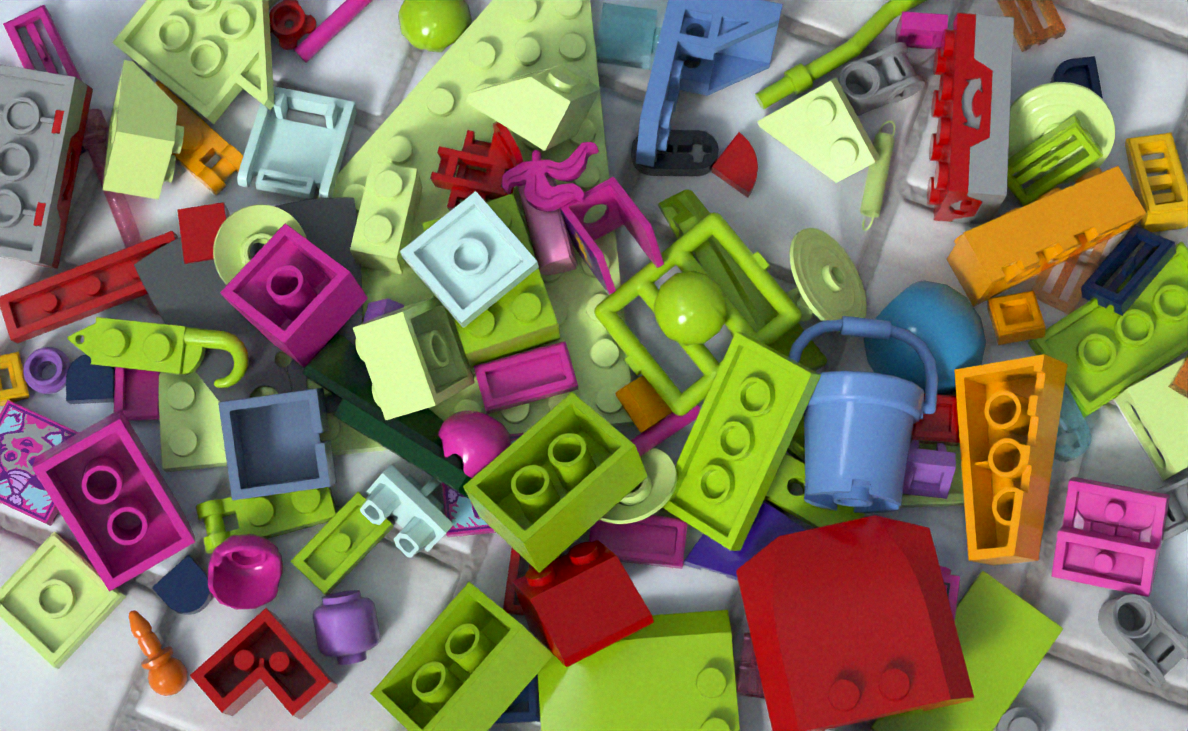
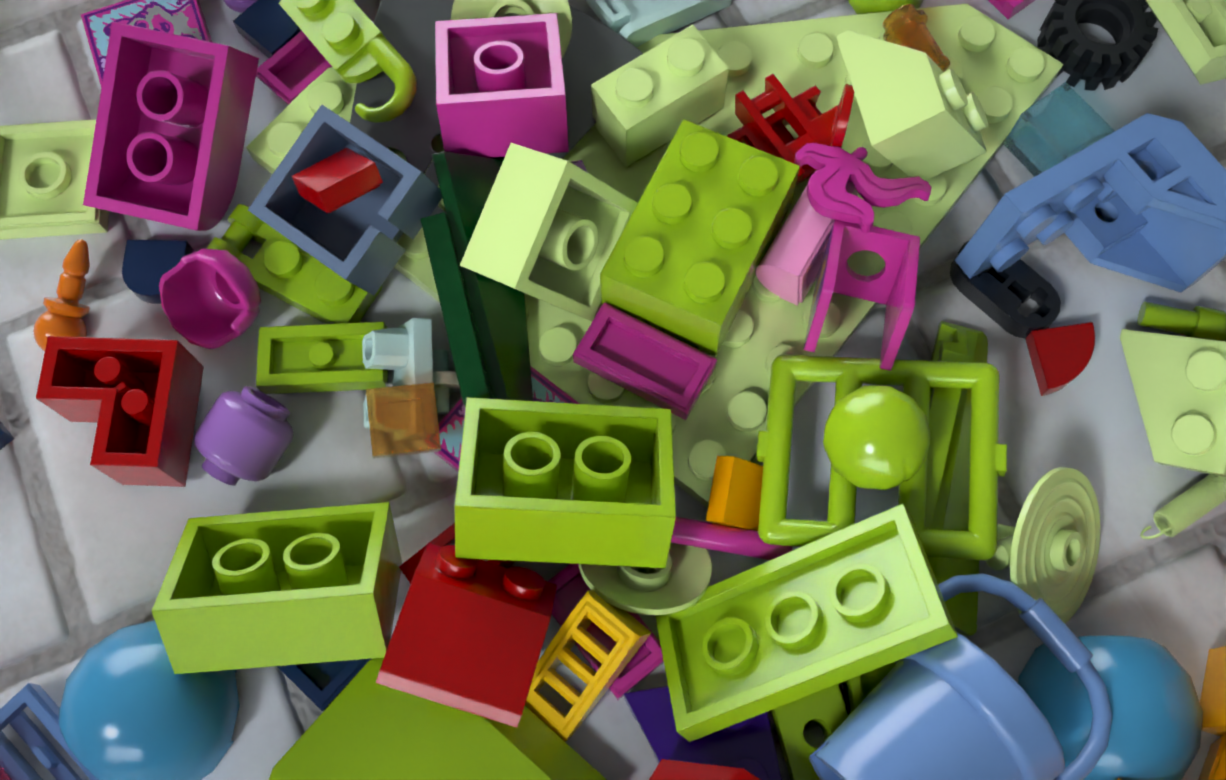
camera: 45 degrees right, 5 degrees down
(269, 436) = (337, 180): none -> red tile
(435, 531) = (403, 420): none -> clear orange tile
(469, 259) = (691, 181): light aqua plate -> none
(474, 438) = (529, 366): dark pink hair -> none
(498, 52) = (908, 28): none -> clear orange pin
(644, 529) = (615, 623): none -> yellow slope

